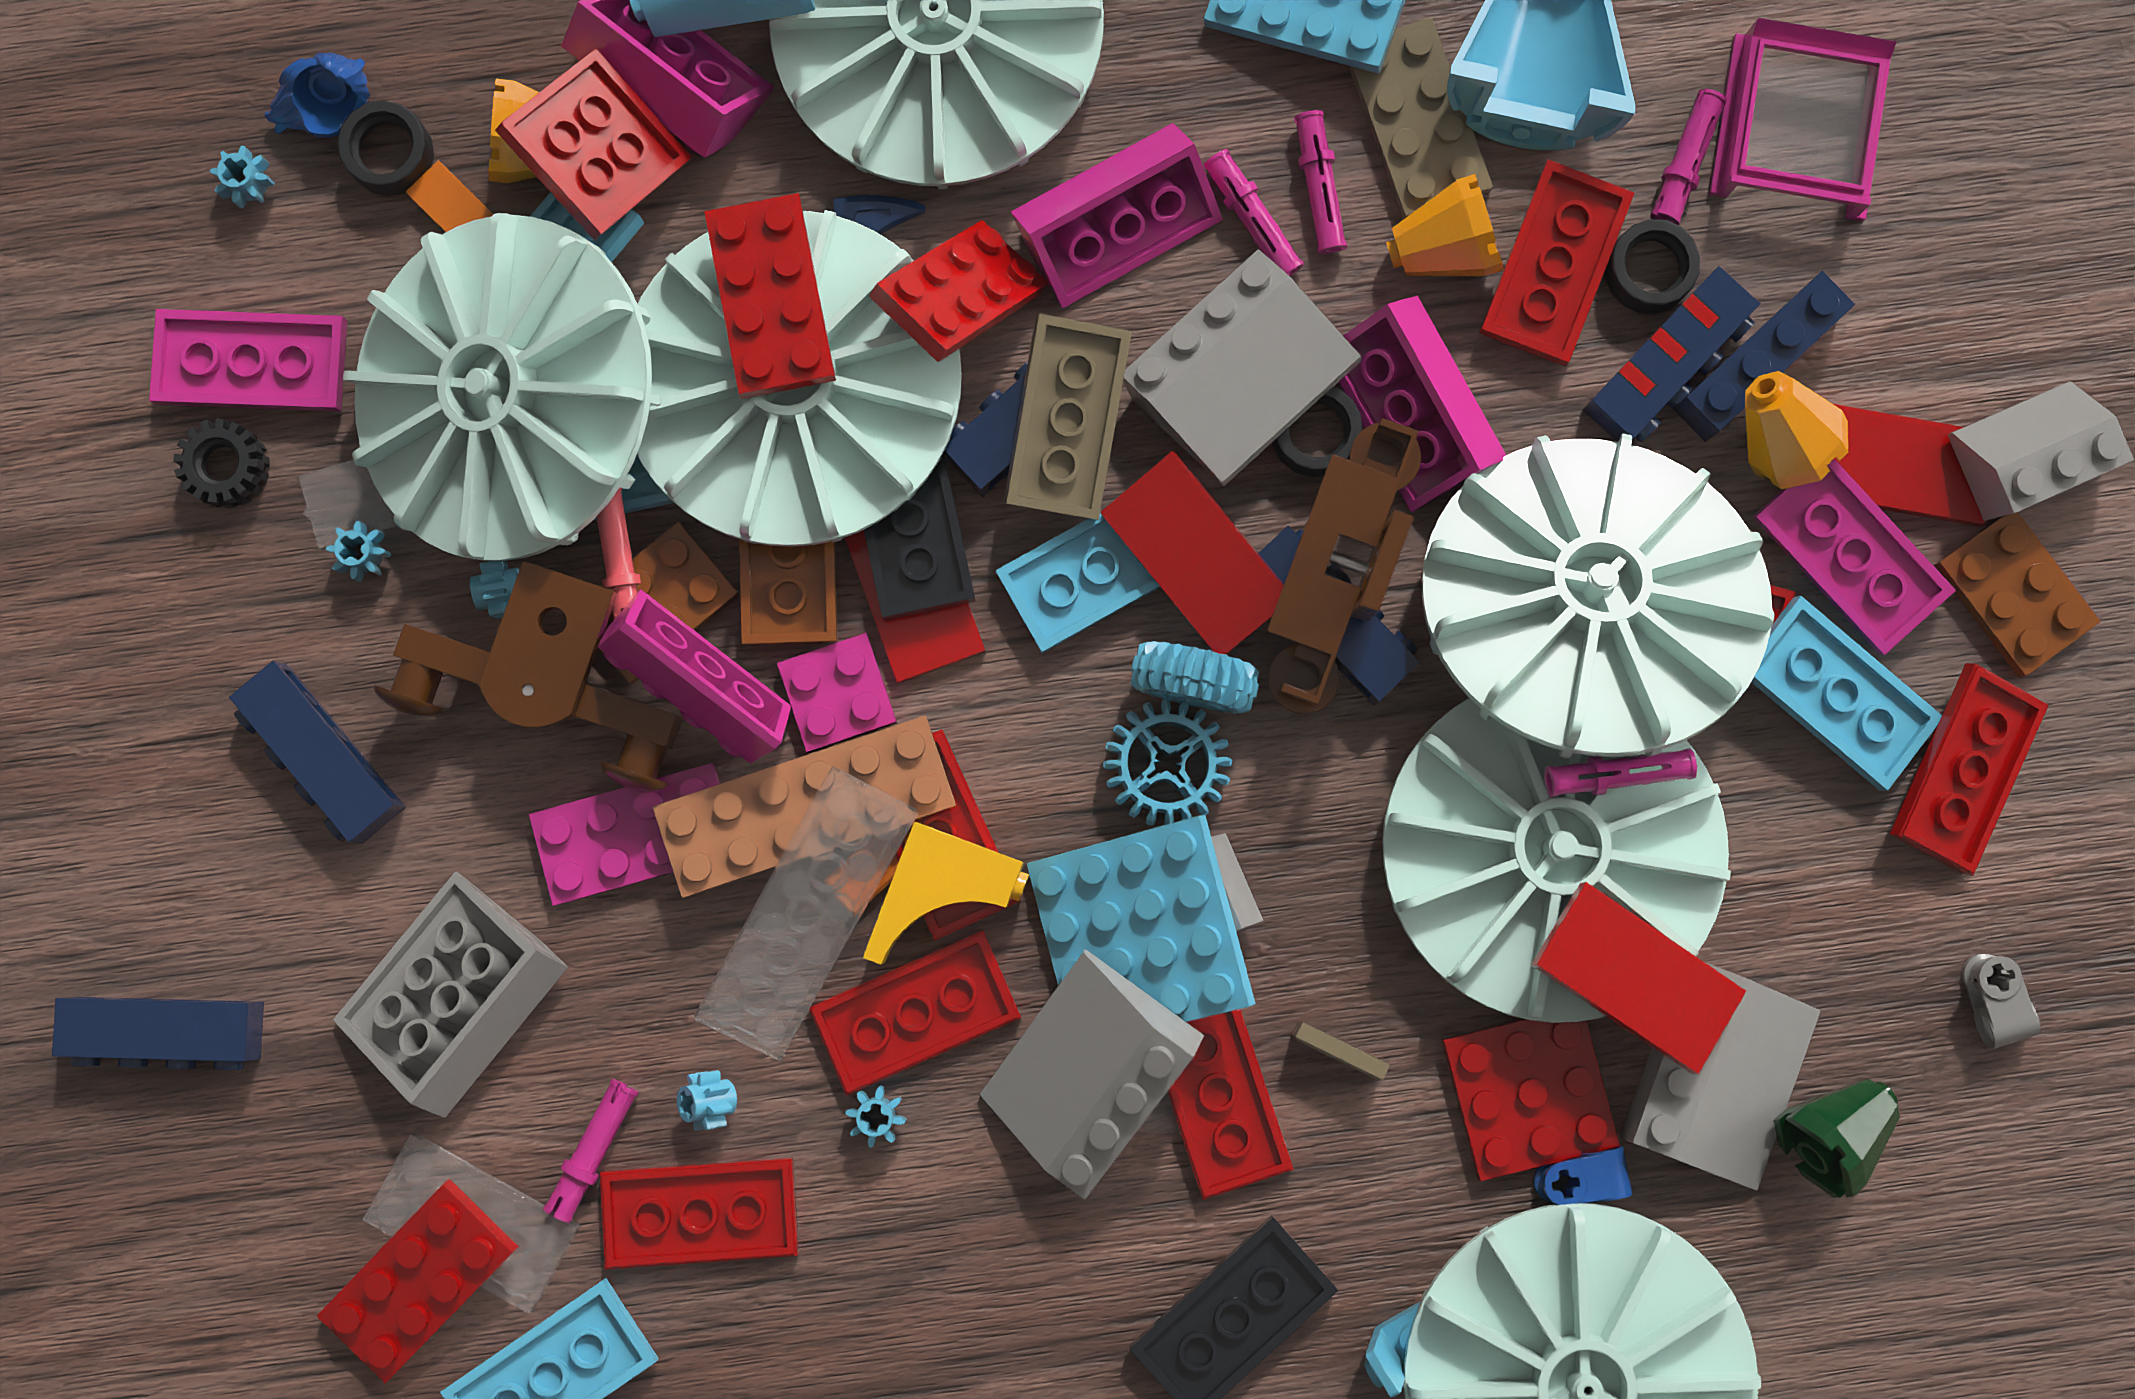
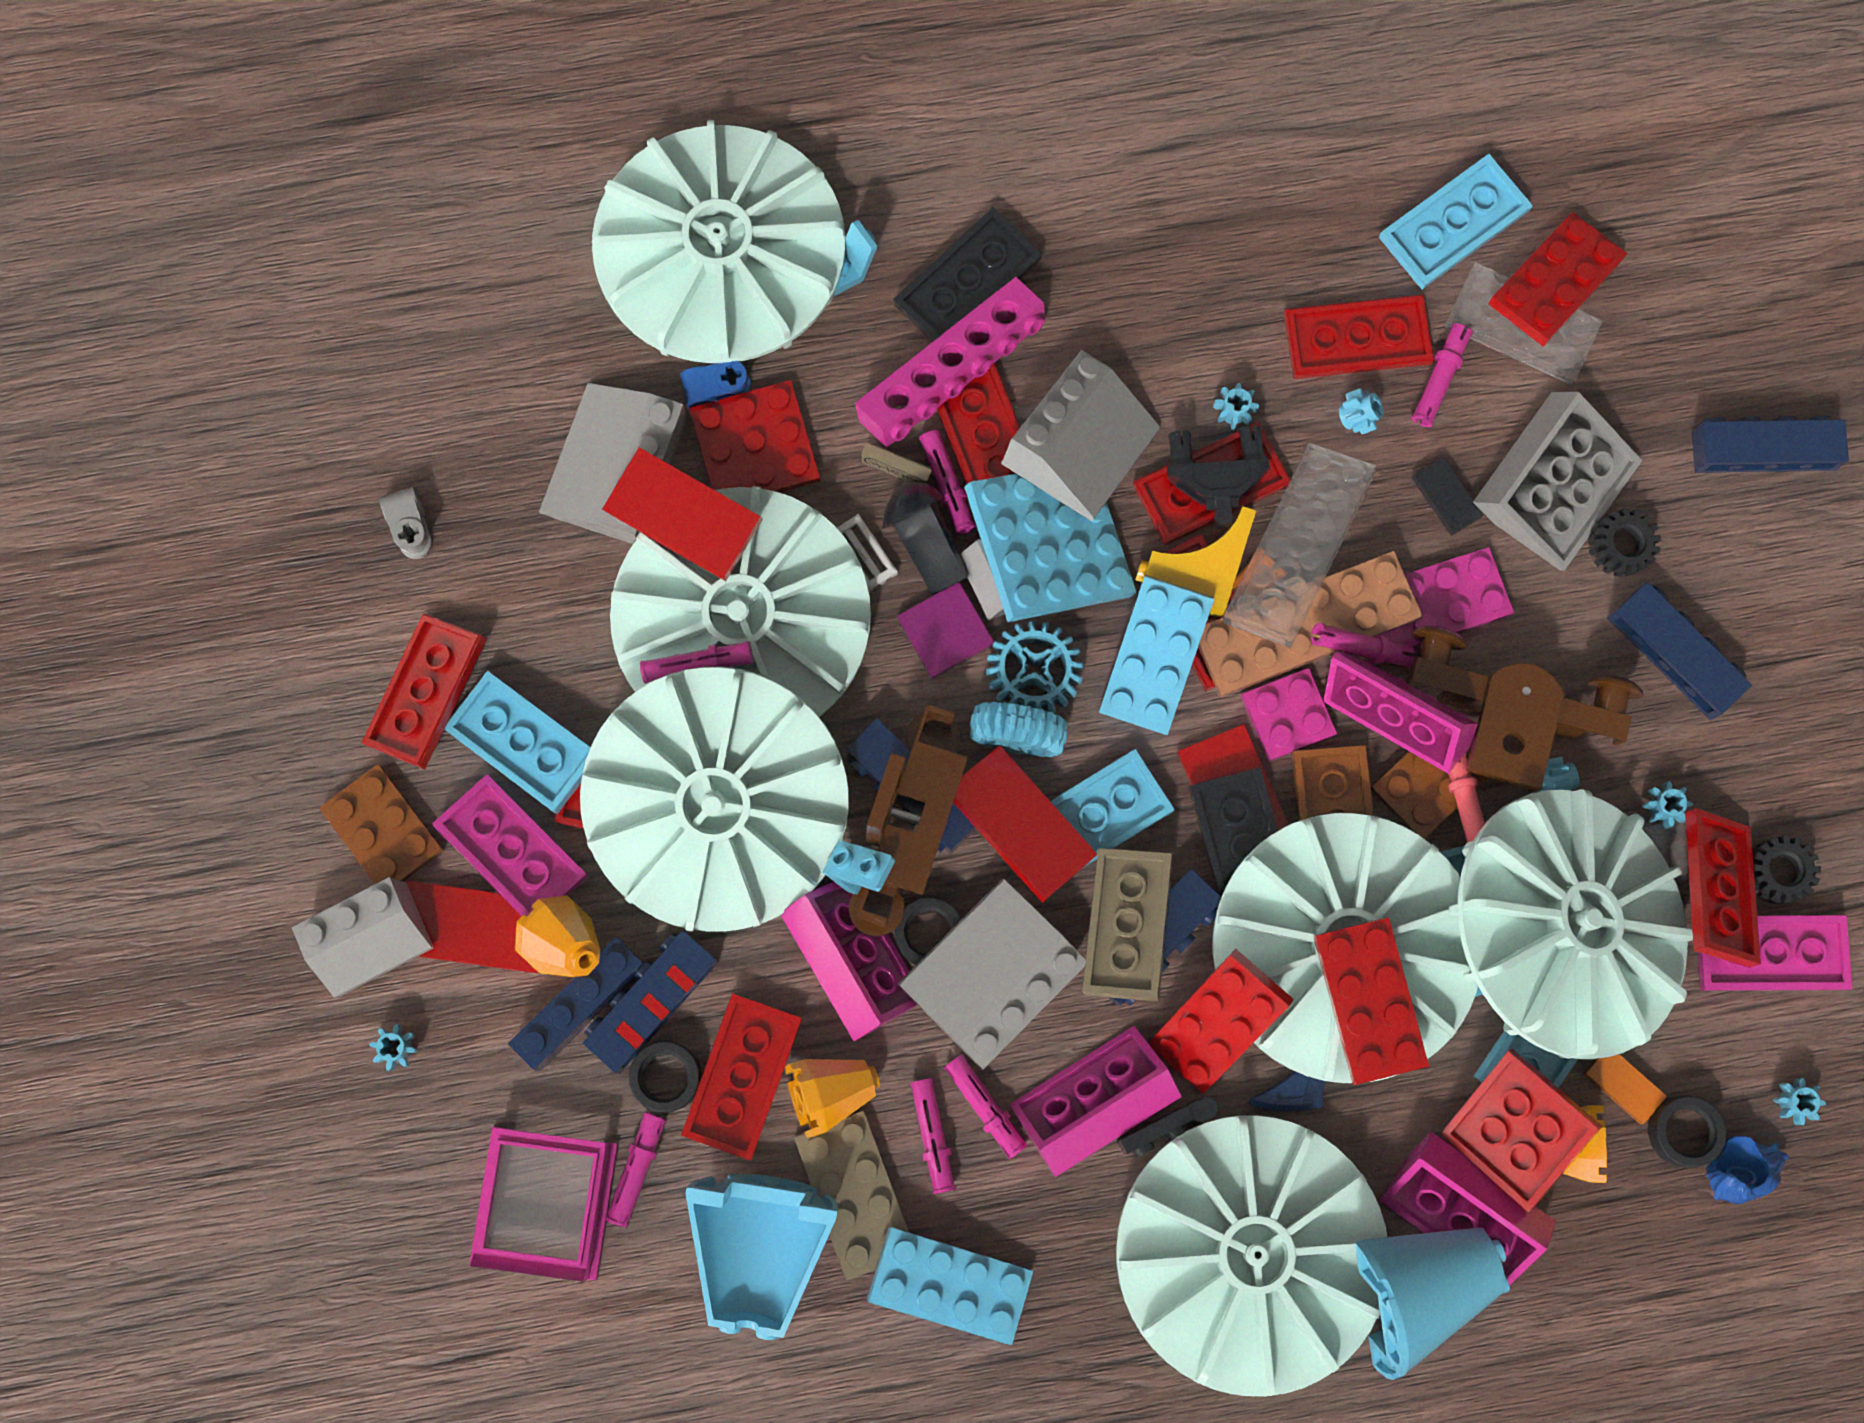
camera: 175 degrees right, 5 degrees down
(303, 434) = (1722, 888): none -> red plate
(344, 901) = (1643, 537): none -> black tyre
(600, 979) = (1447, 496): none -> black tile
(718, 766) = (1375, 648): none -> dark pink pin
(907, 1002) = (1218, 483): none -> black connector
(1007, 772) = (1156, 654): none -> medium azure plate
(1027, 181) = (1169, 1125): none -> black hinge
(1178, 1277) = (957, 345): none -> dark pink brick
(1273, 1029) = (961, 519): none -> dark pink pin
(1281, 824) = (945, 630): none -> magenta tile
(1312, 961) = (925, 534): none -> black piece
(1366, 900) = (879, 578): none -> white tile
(1413, 492) = (858, 867): none -> medium azure bracket
(1840, 1135) = (527, 421): dark green cone -> none
(2003, 304) = (383, 1046): none -> medium azure gear

